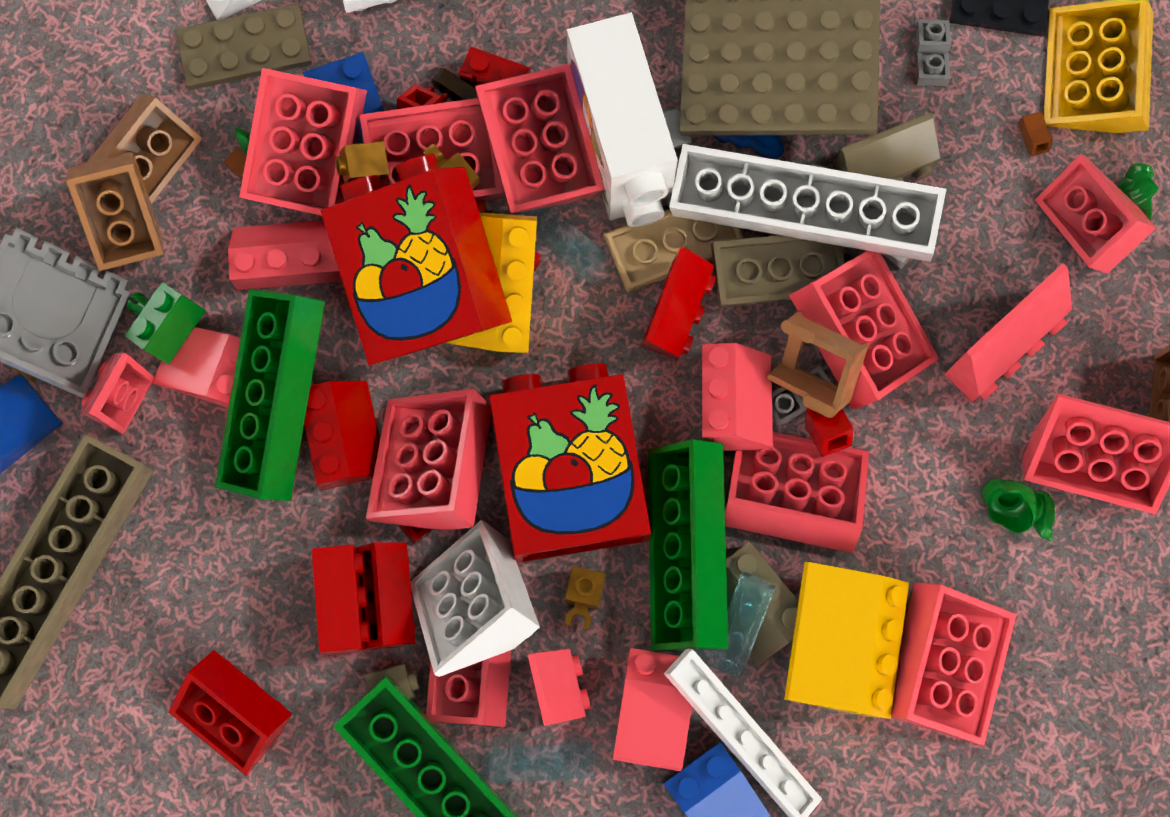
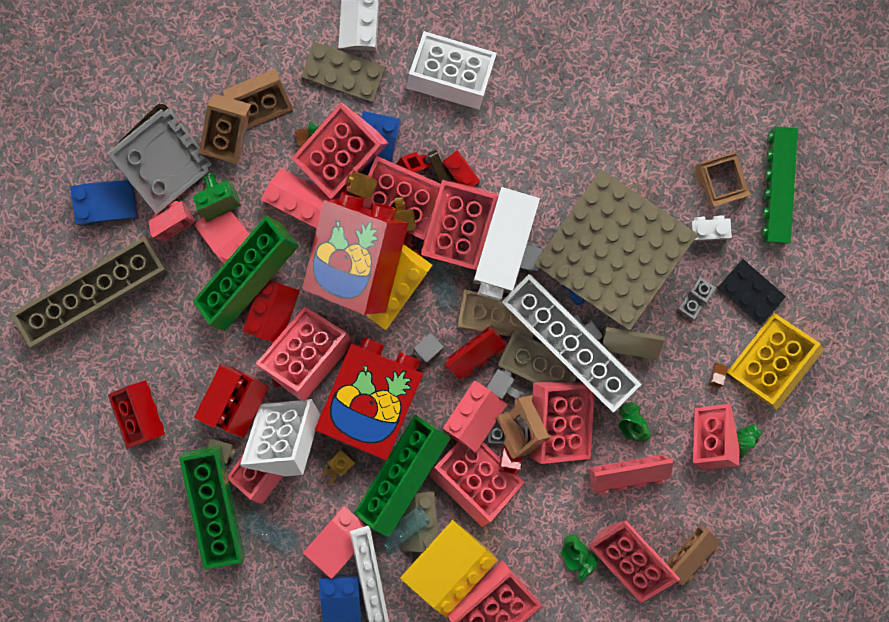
camera: 30 degrees right, 10 degrees up
(558, 686) = (297, 503): coral slope -> none
(605, 343) = (427, 348): none -> light grey brick
(743, 327) = (501, 384): none -> light grey brick
(967, 271) = (632, 423): none -> green hair

